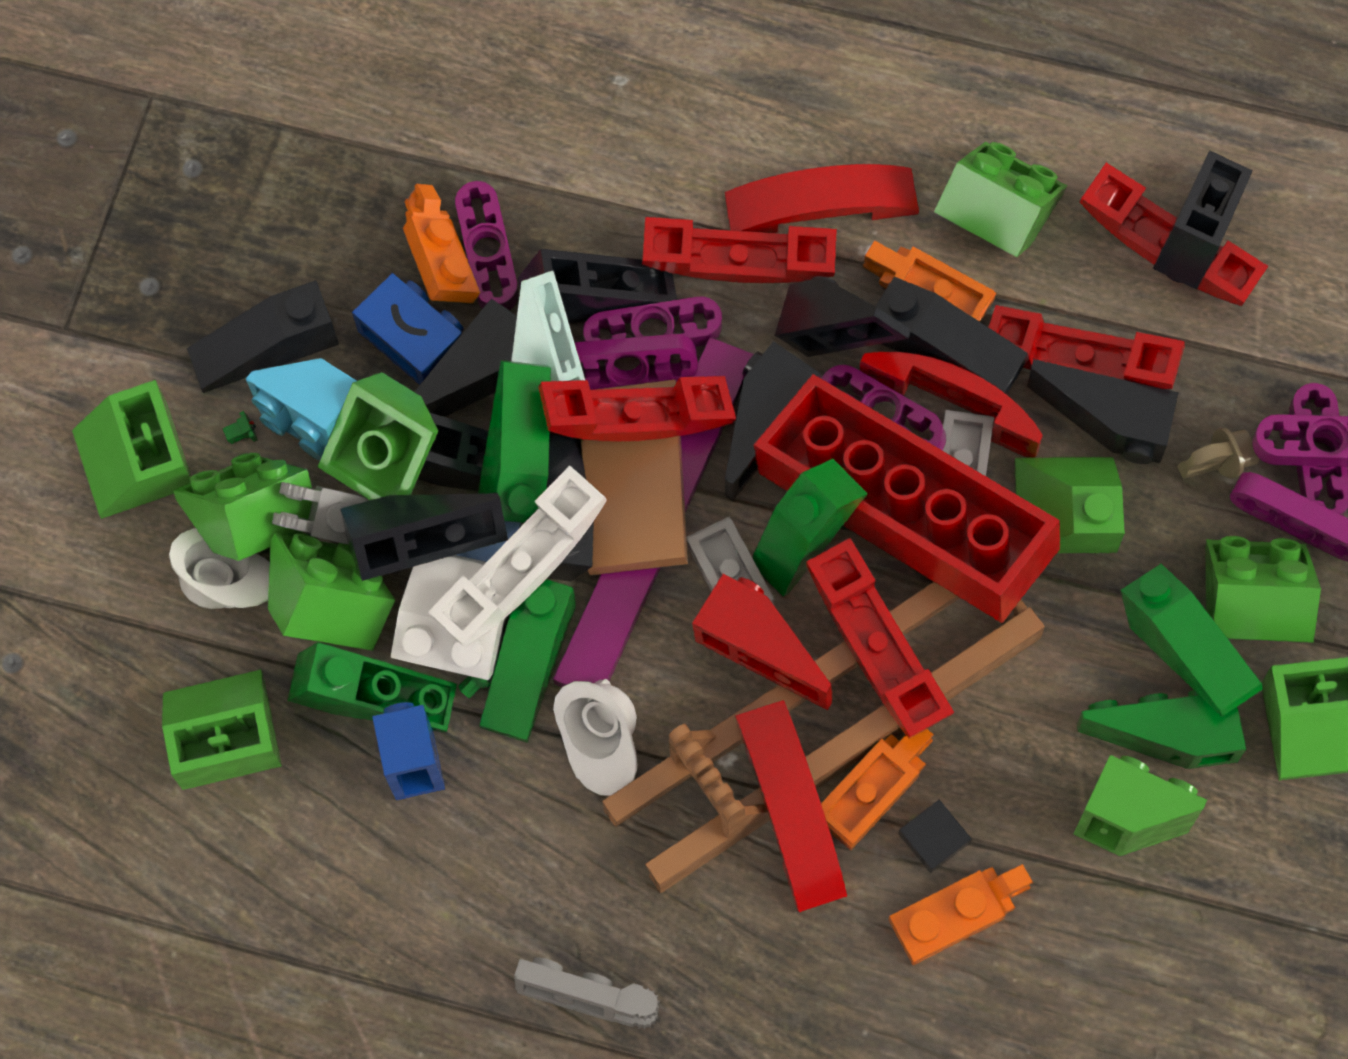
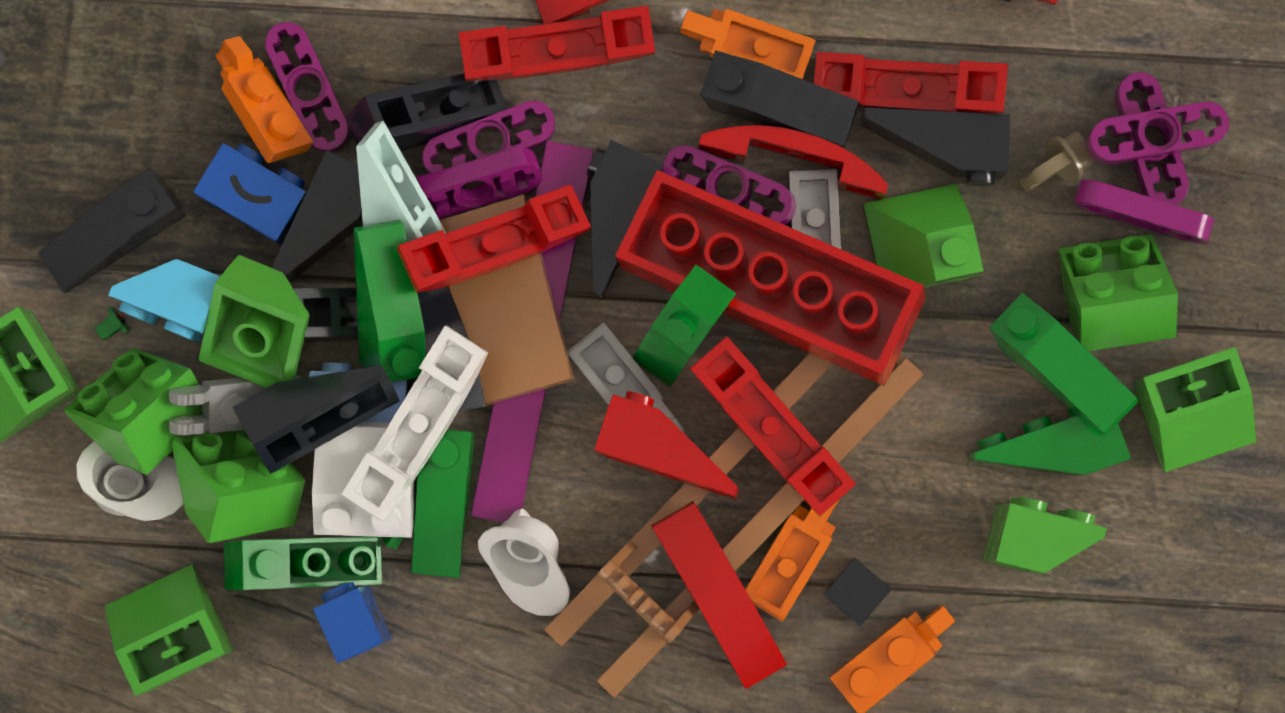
camera: 15 degrees left, 15 degrees up
(828, 319) = (665, 104): black slope -> none

